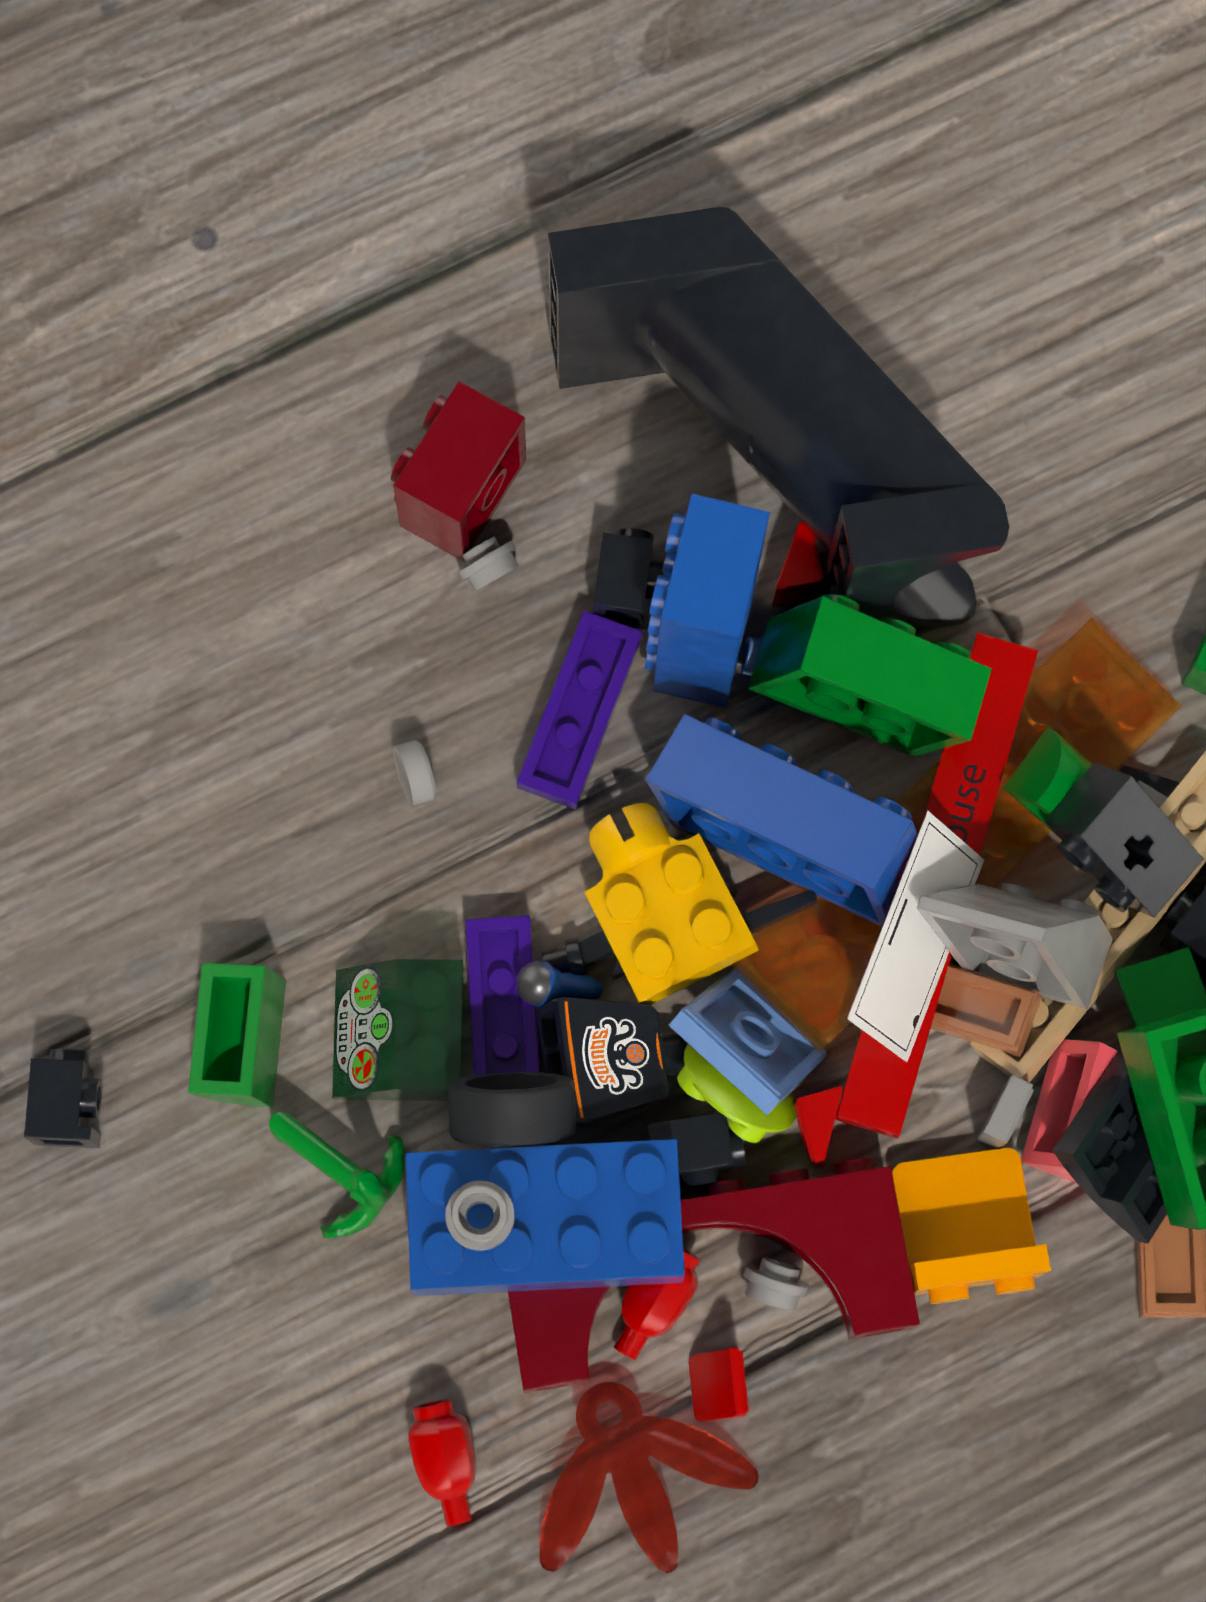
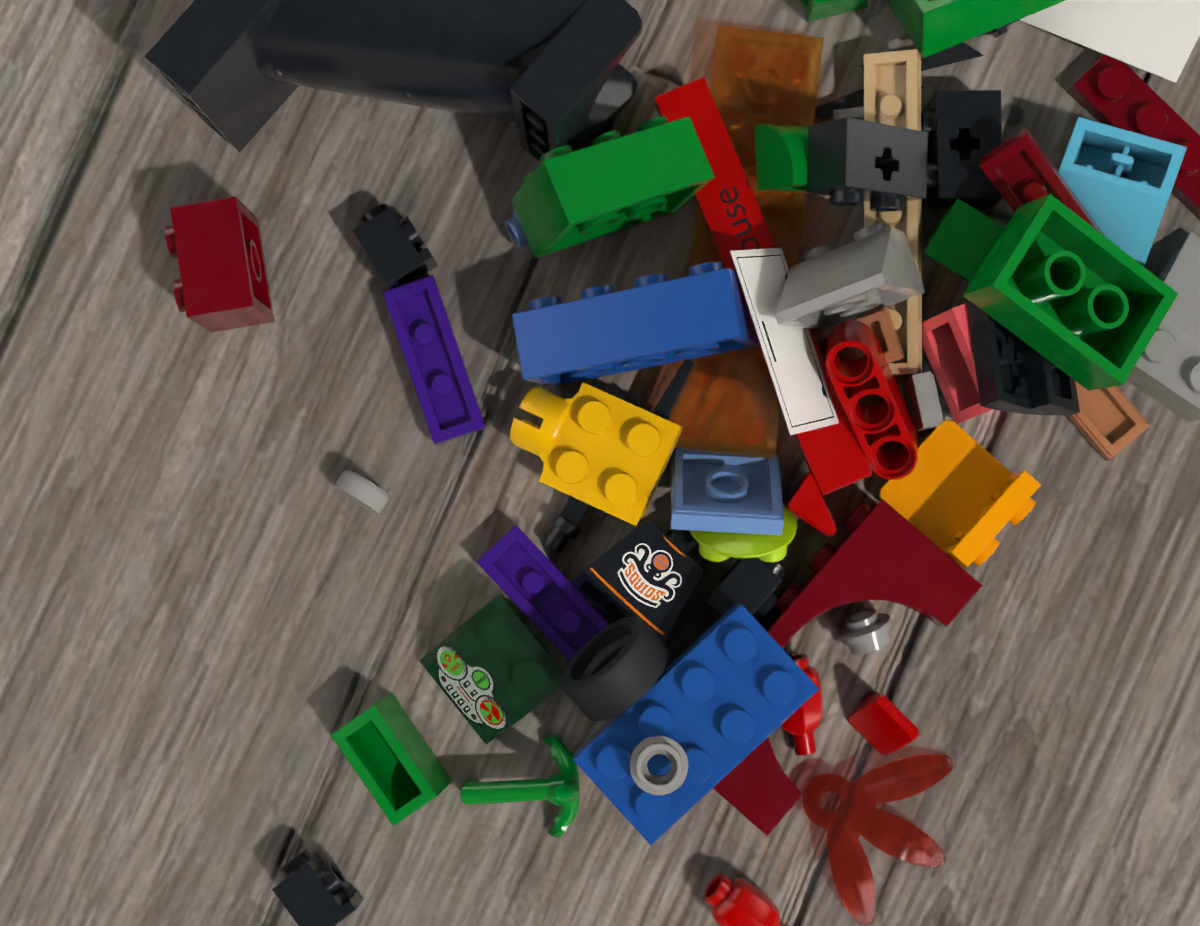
camera: 35 degrees left, 10 degrees up
(488, 562) = (292, 311): light grey plate -> none
(542, 983) = (562, 564): piece -> none
(704, 599) = (462, 221): blue brick -> none
(801, 572) = (504, 148): red slope -> none
(934, 1088) = (872, 423): none -> red beam

